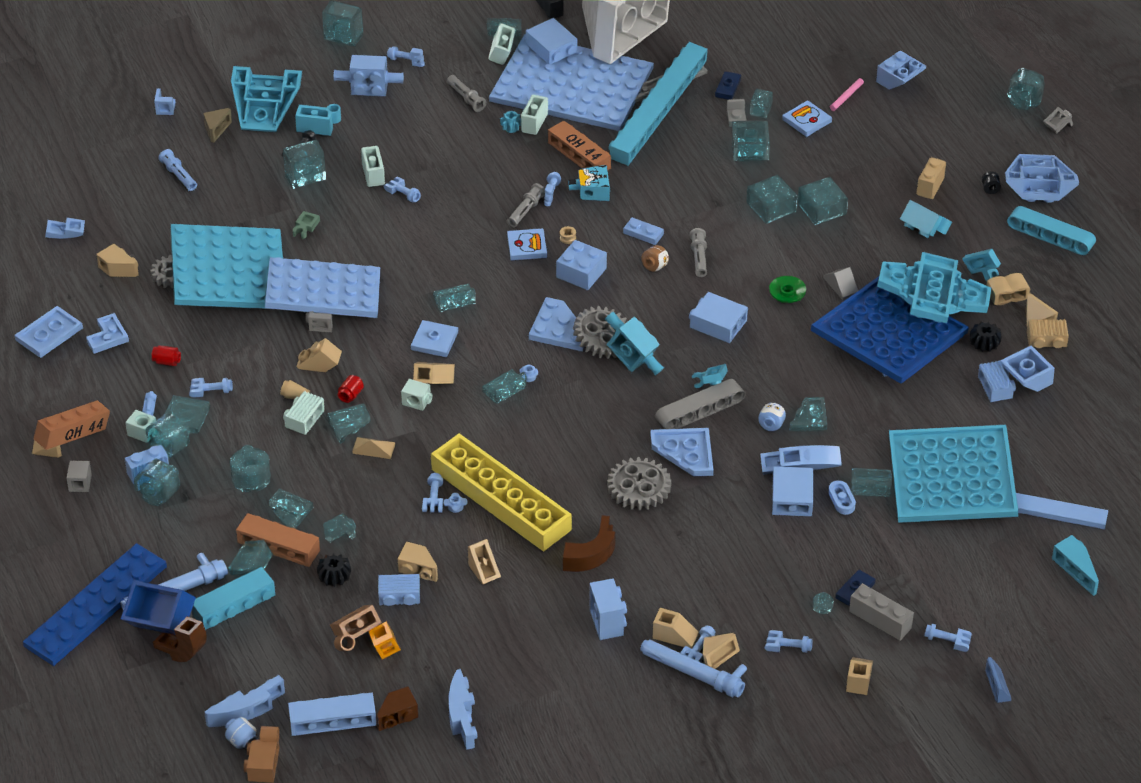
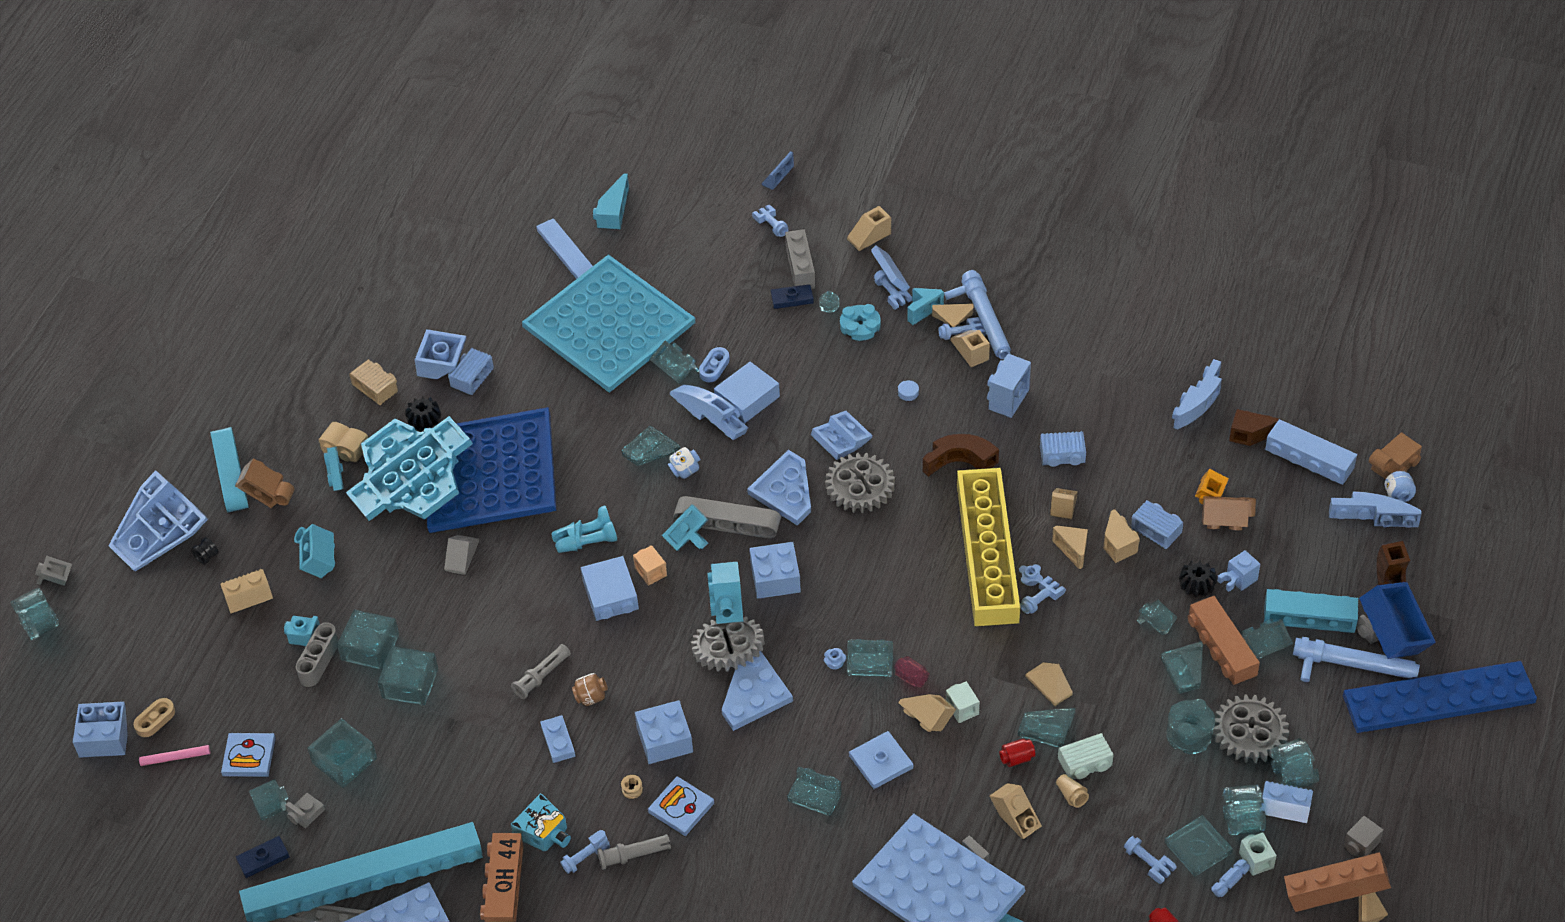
camera: 135 degrees left, 5 degrees up
(209, 496) = (1250, 728): none -> light grey gear
(306, 592) = (1241, 571): none -> light blue brick
(446, 537) = (1071, 542): none -> tan slope
(468, 391) = (911, 671): none -> clear pink brick
(522, 599) = (1062, 448): none -> light blue brick
(626, 391) = (775, 570): none -> light blue brick
(684, 574) = (908, 390): none -> light blue tile
(693, 511) = (841, 435): none -> light blue slope
(711, 345) = (649, 565): none -> light nougat brick
(749, 644) = (922, 303): none -> medium azure slope
(778, 330) = (573, 538): none -> medium azure piece
(783, 593) = (865, 313): none -> medium azure plate
(787, 289) = (514, 566): green dish -> none
(804, 648) = (890, 268): none -> light blue tile
(841, 176) = (317, 654): none -> light grey beam
(868, 184) = (300, 629): none -> medium azure brick
(884, 98) = (153, 718): none -> tan plate
(1009, 227) = (264, 484): none -> medium nougat hinge
(1038, 310) = (353, 406): tan slope -> none

